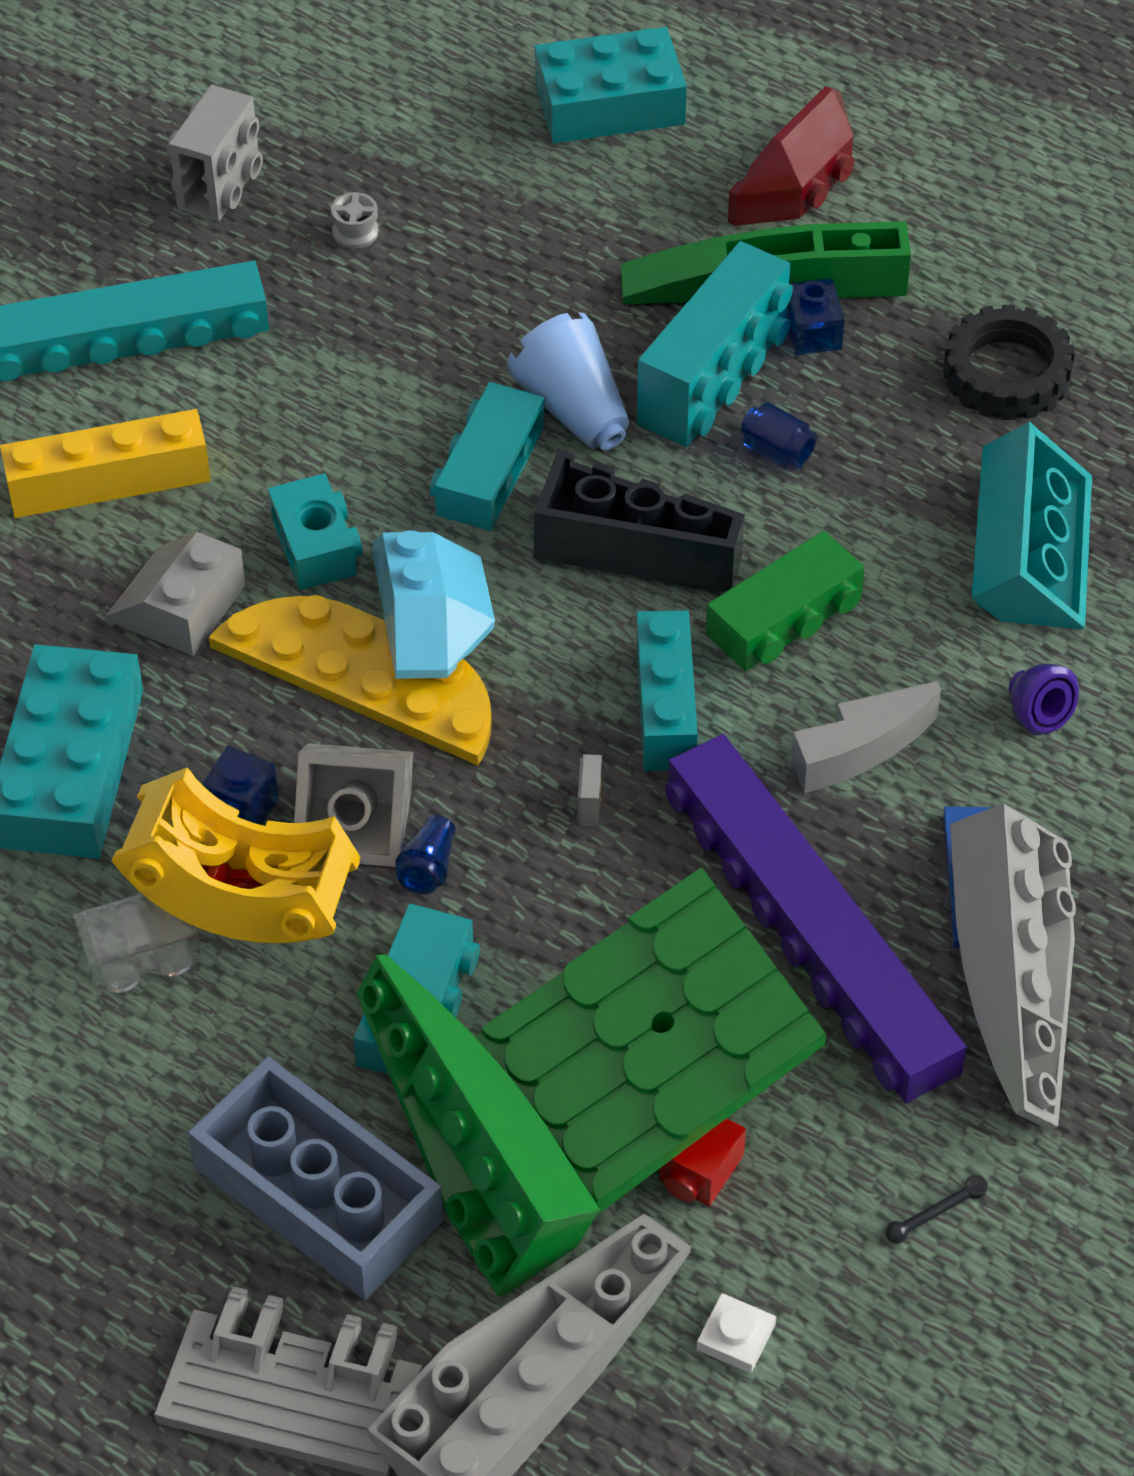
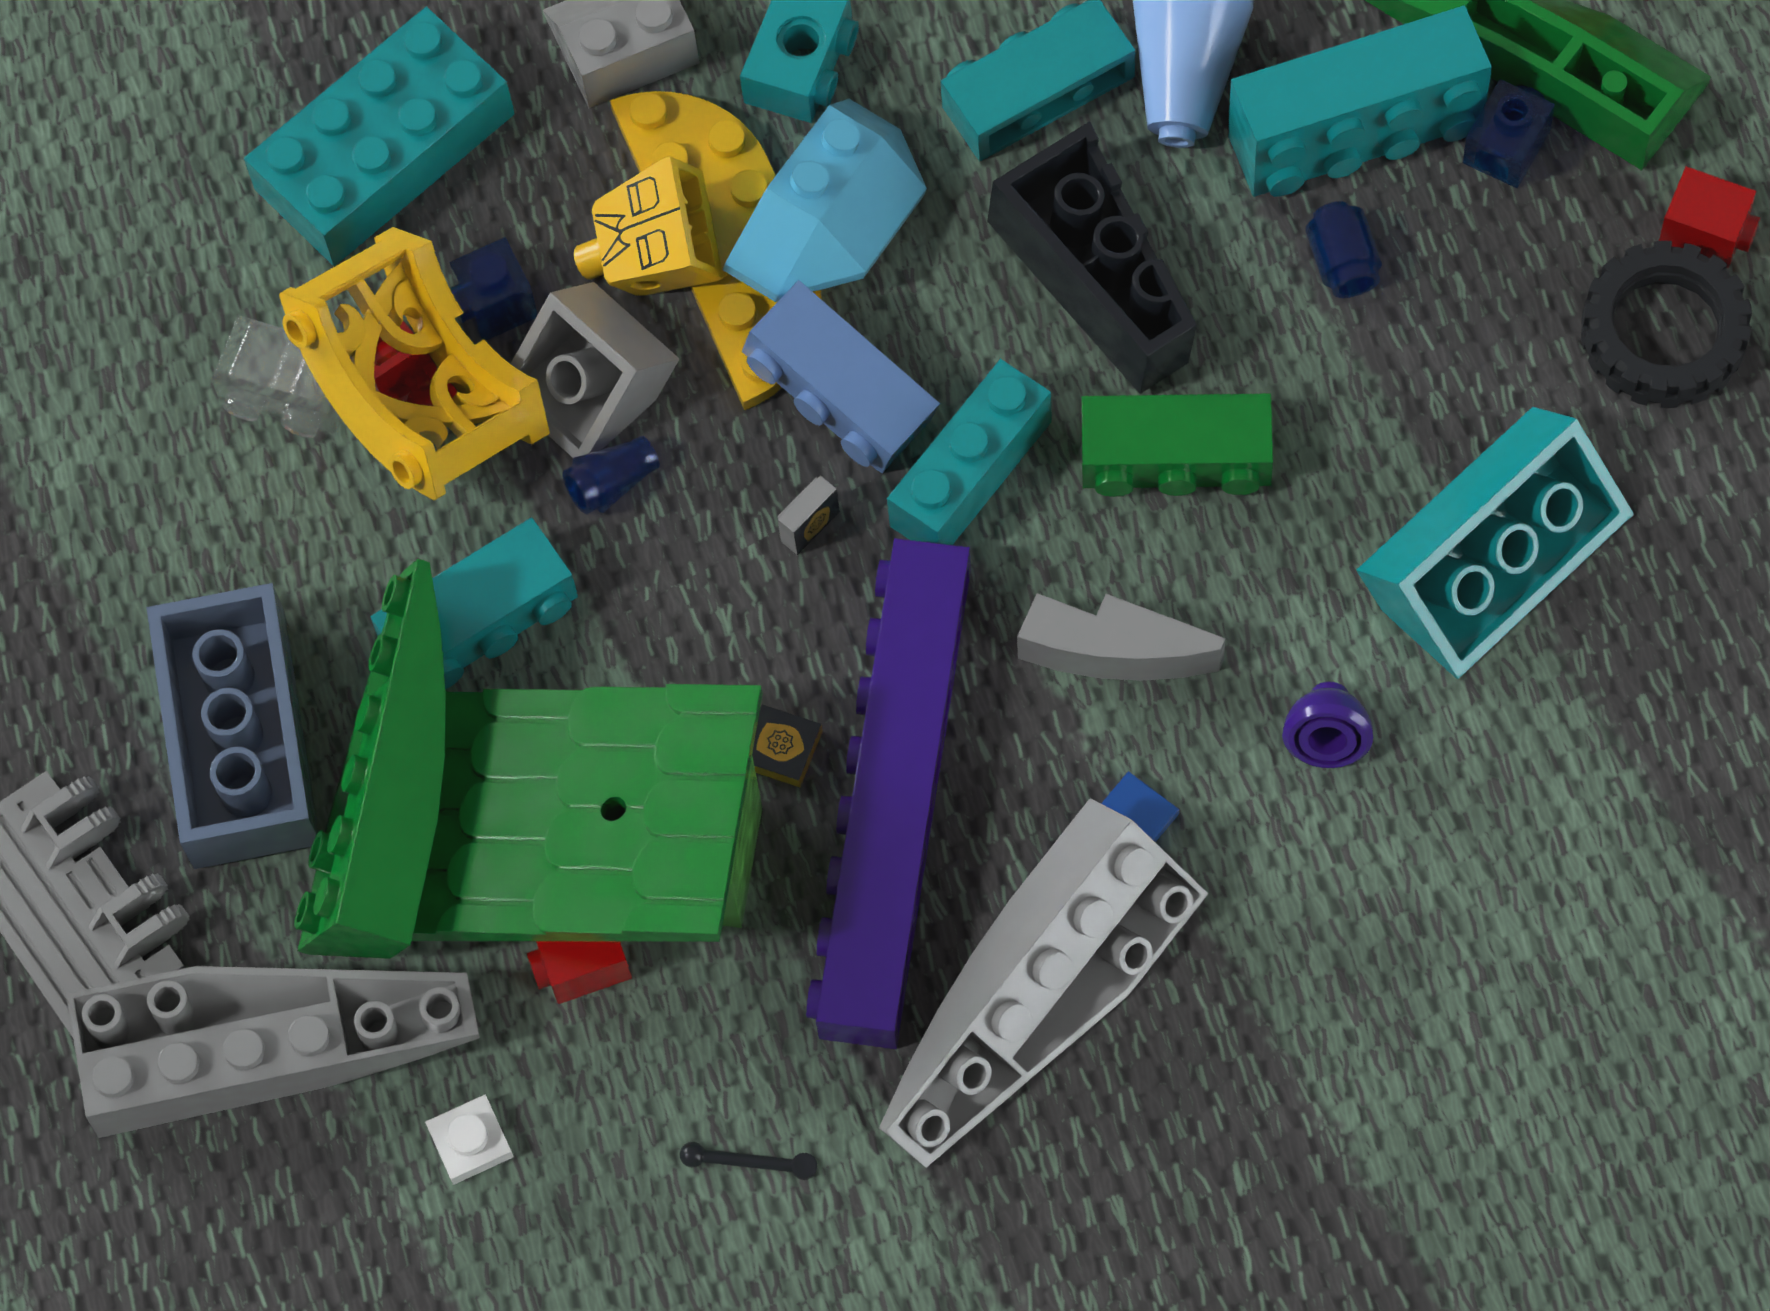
camera: 45 degrees right, 15 degrees up
(324, 689) = (653, 232): none -> yellow torso
(536, 693) = (838, 378): none -> medium blue brick
(974, 285) = (1710, 215): none -> red brick

